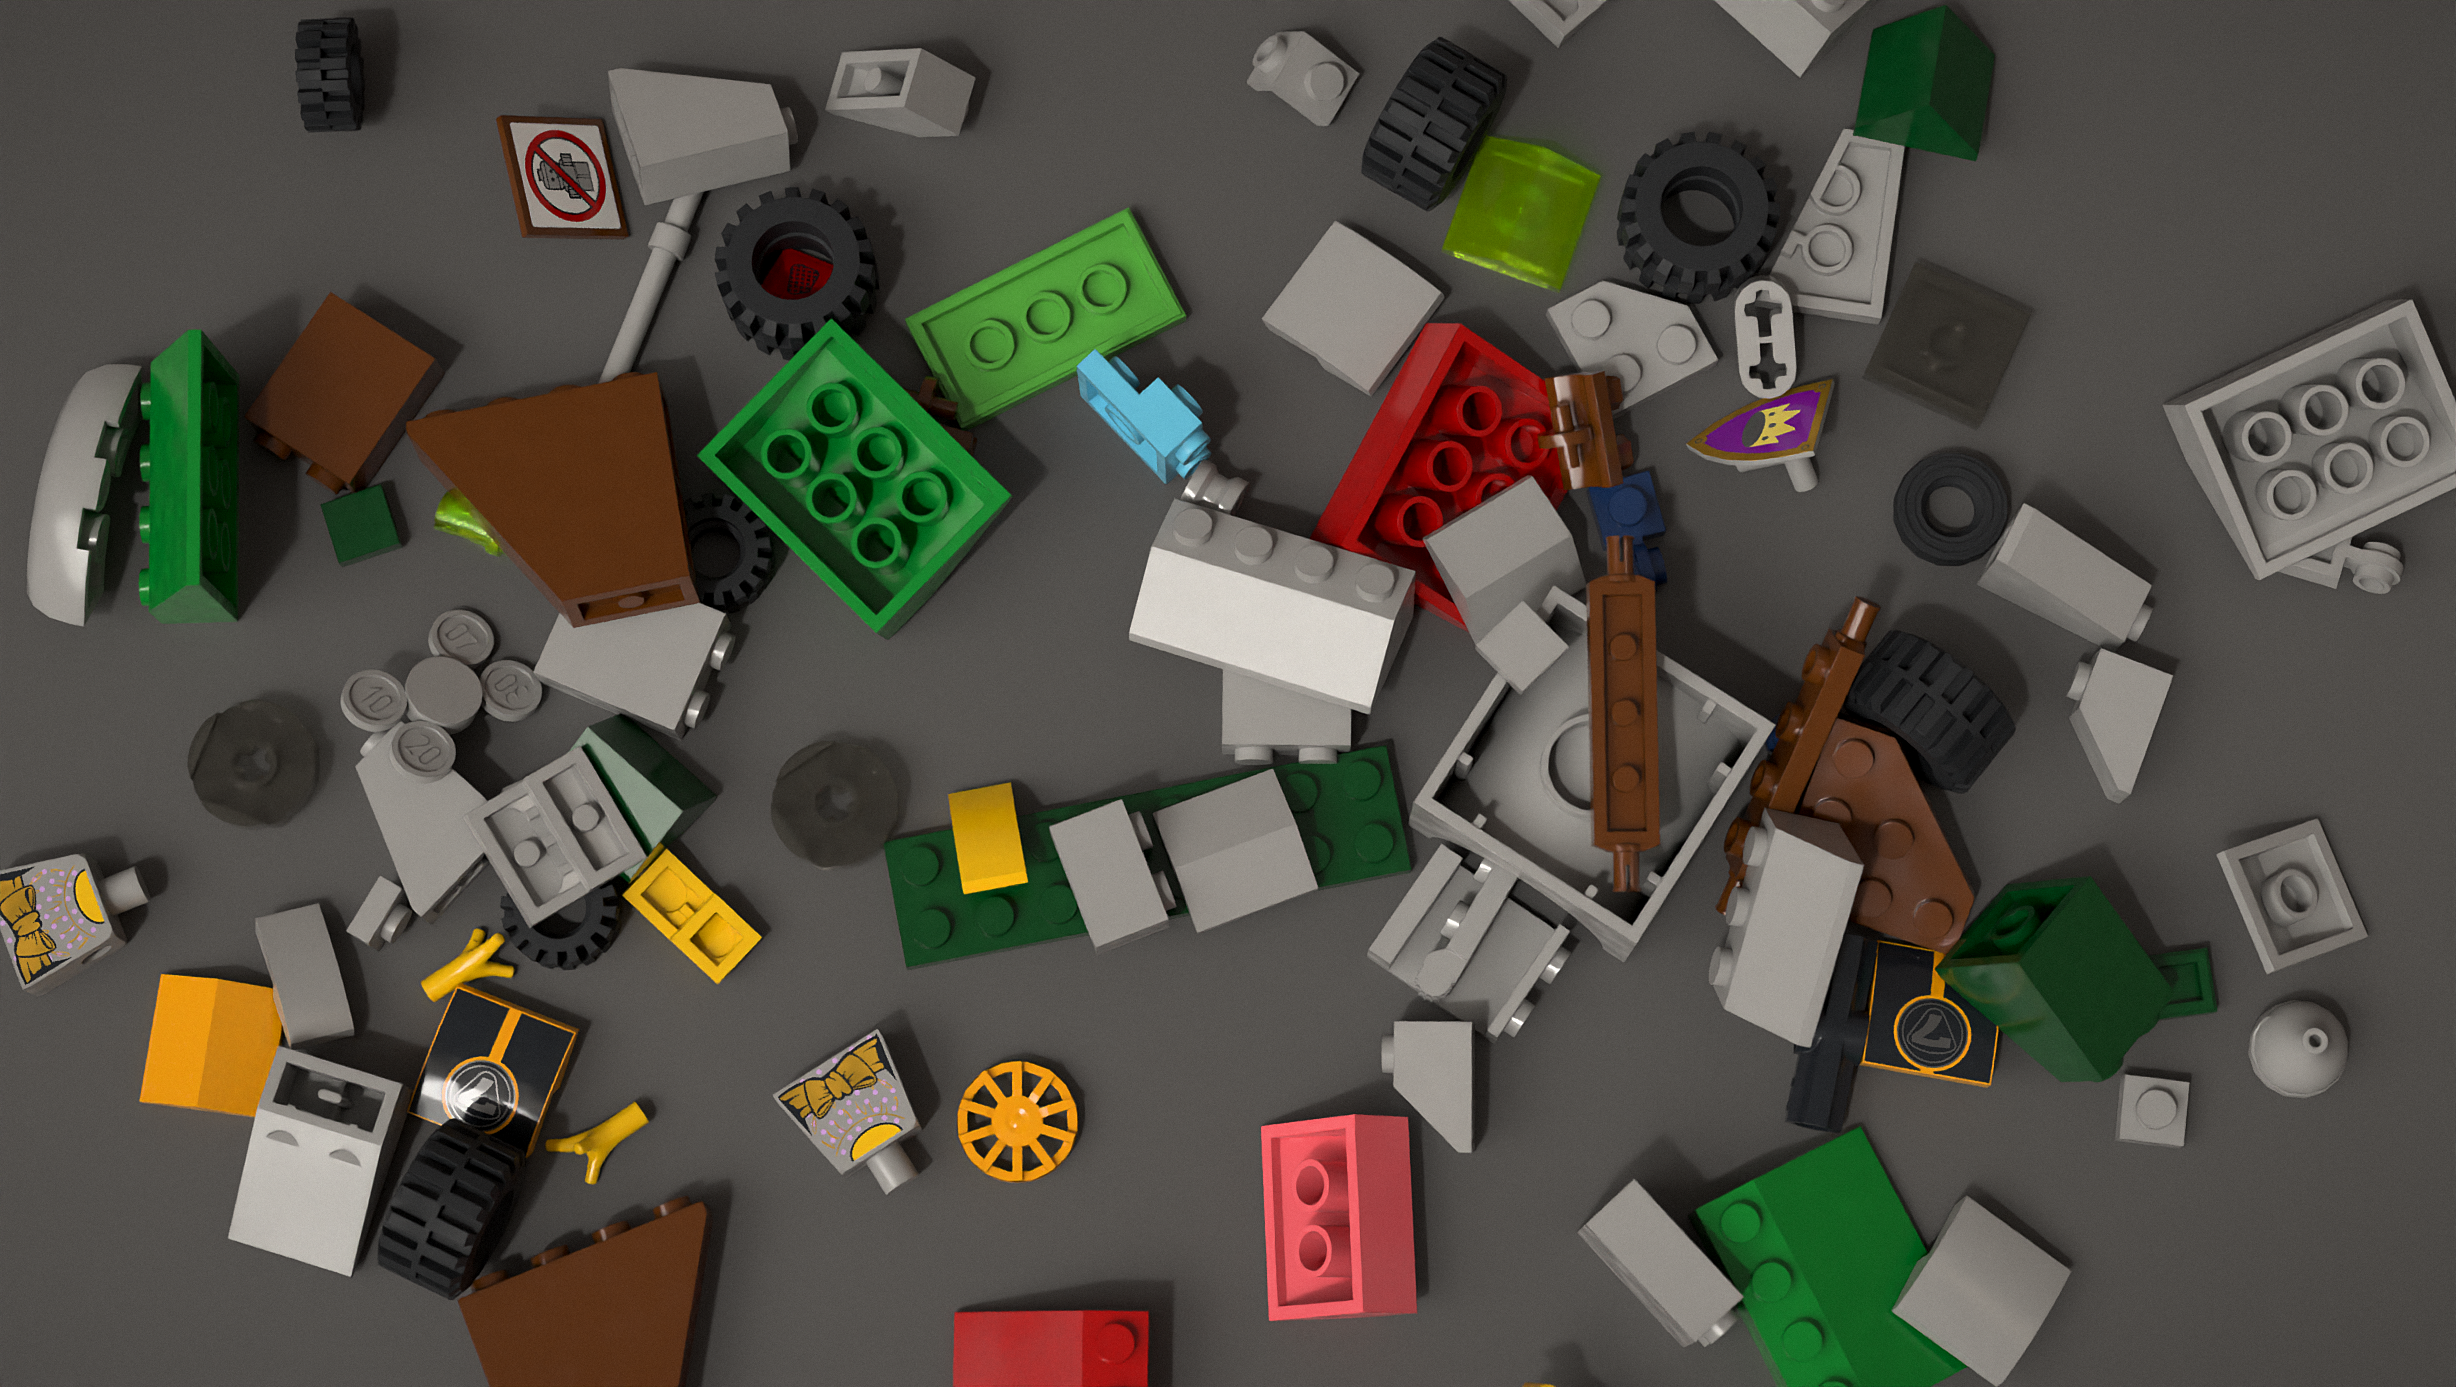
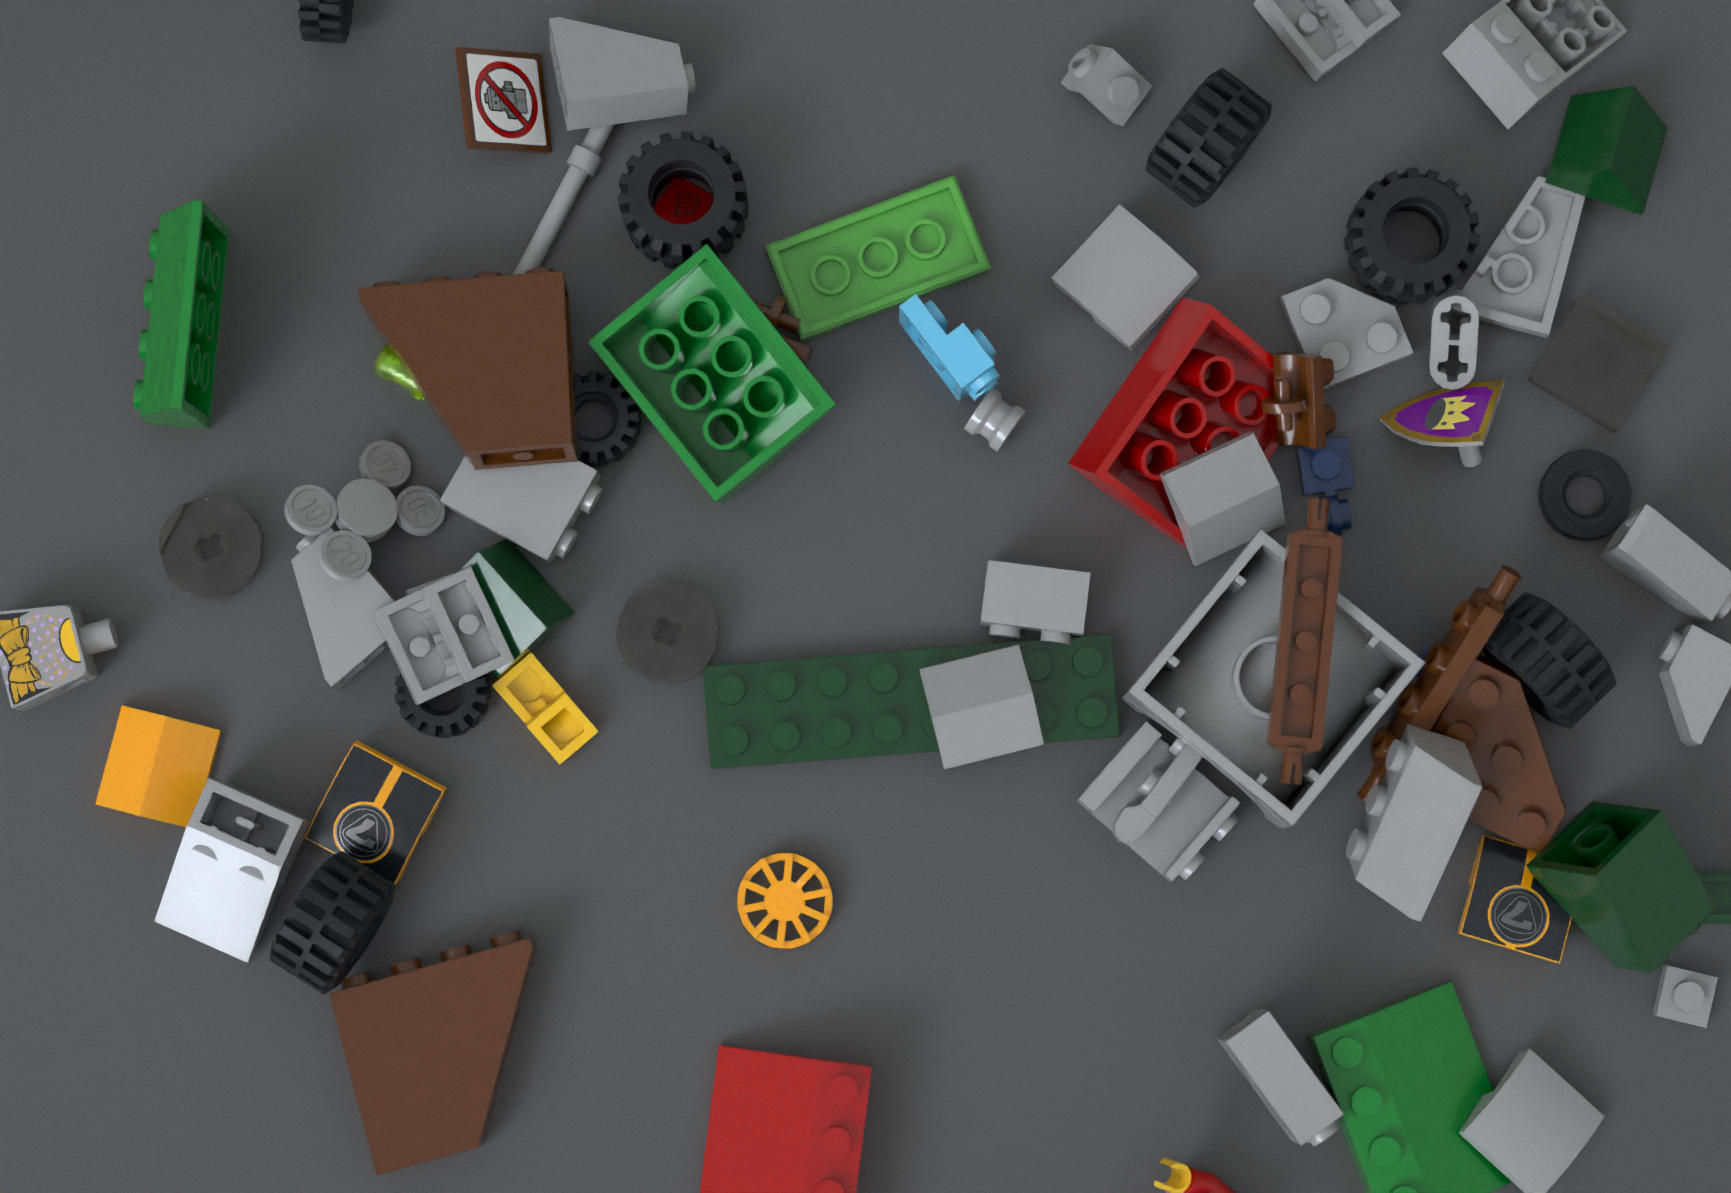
camera: 10 degrees right, 5 degrees up
(74, 483) = (82, 334): light grey brick -> none
(304, 976) = (234, 721): light grey slope -> none
(343, 396) = (310, 259): reddish brown brick -> none
(361, 525) = (315, 363): dark green tile -> none
(381, 915) = (300, 680): light grey plate -> none
(469, 965) = (364, 727): yellow bar -> none
(601, 1139) = (455, 876): yellow bar -> none
(857, 1112) = (659, 880): torso -> none
(901, 91) = (782, 60): light grey slope -> none
(987, 838) = (786, 674): yellow slope -> none
(1111, 875) = (881, 717): light grey brick -> none
(1273, 606) = (1034, 515): slope -> none
(1338, 1218) = (1030, 1008): coral slope -> none
(1436, 1075) = (1120, 903): light grey slope -> none
(1521, 212) = (1269, 213): clear neon green slope -> none
(1521, 647) = (1229, 578): light grey tile -> none
(1826, 1068) = (1428, 941): black piece -> none

